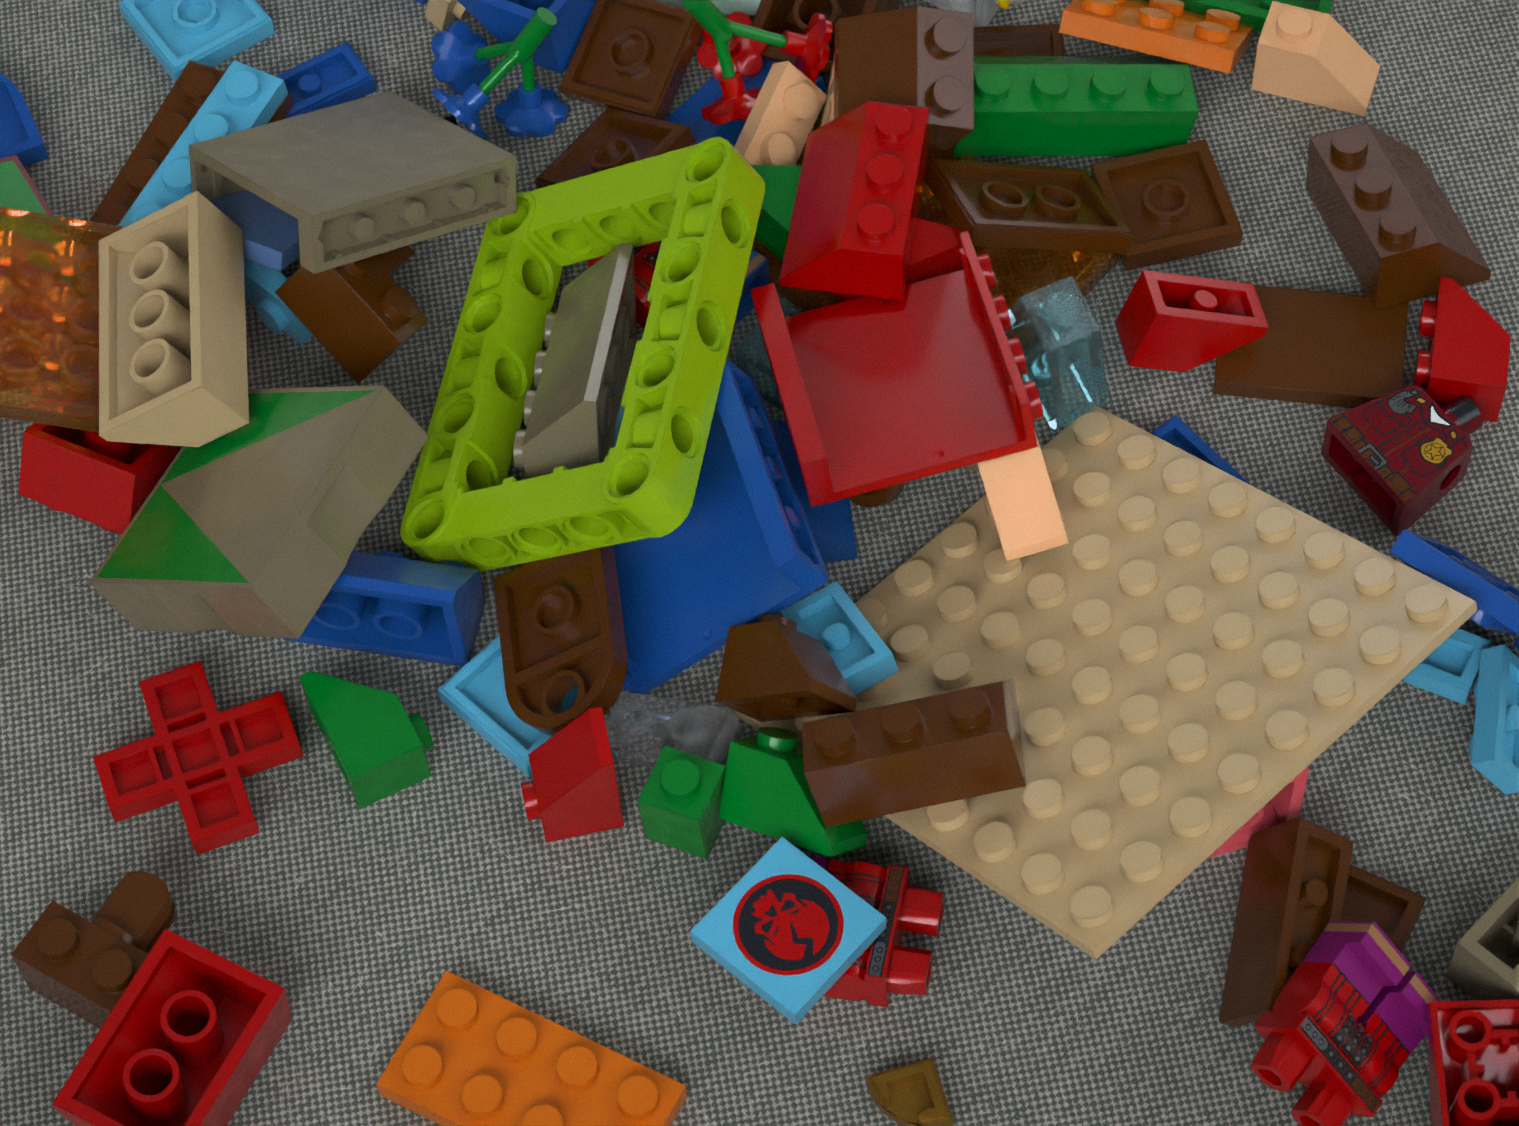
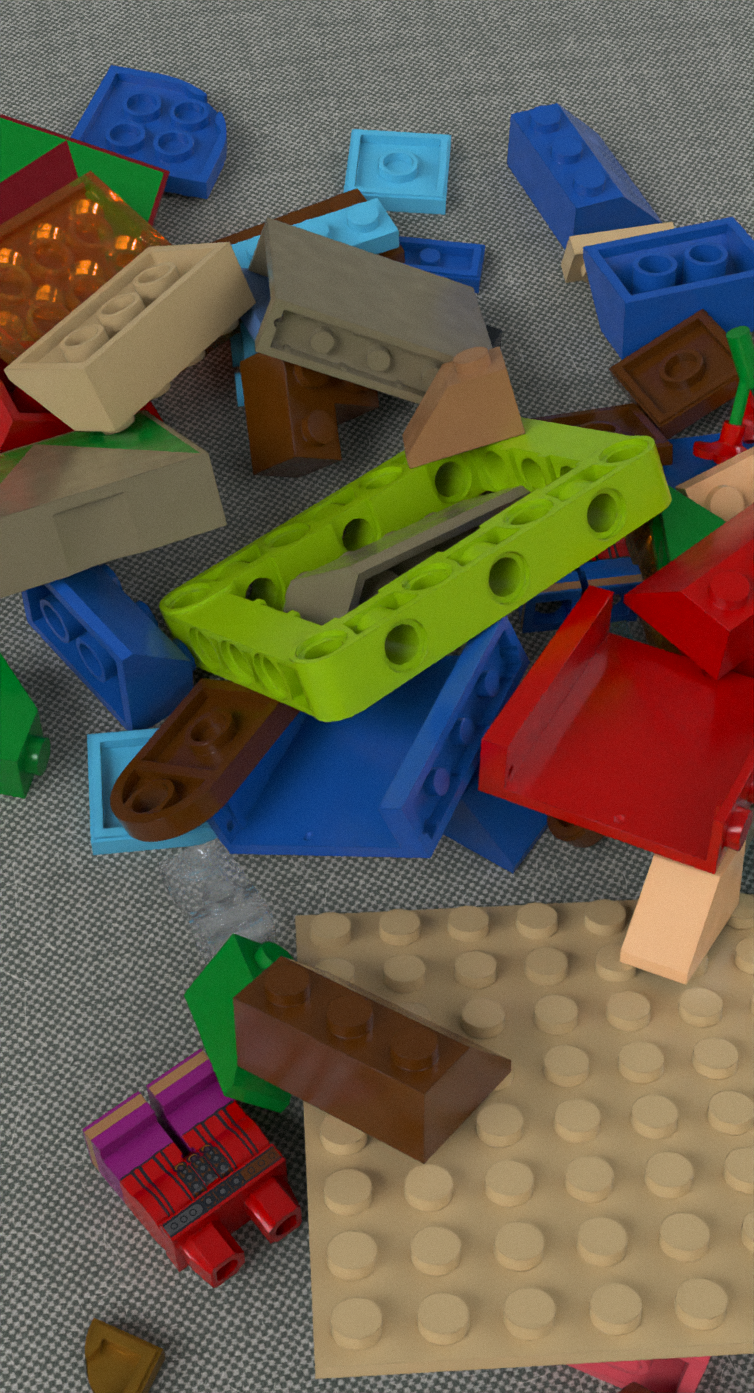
camera: 35 degrees right, 5 degrees down
(463, 64) = (553, 306): blue plant -> none
(512, 210) = (463, 408): none -> medium nougat slope
(574, 781) = (106, 879): red slope -> none
(683, 802) = (167, 956): green brick -> none
(780, 673) = (330, 907): reddish brown slope -> none
(788, 930) = (129, 1132): tile -> none
(846, 635) = (410, 923): medium azure plate -> none

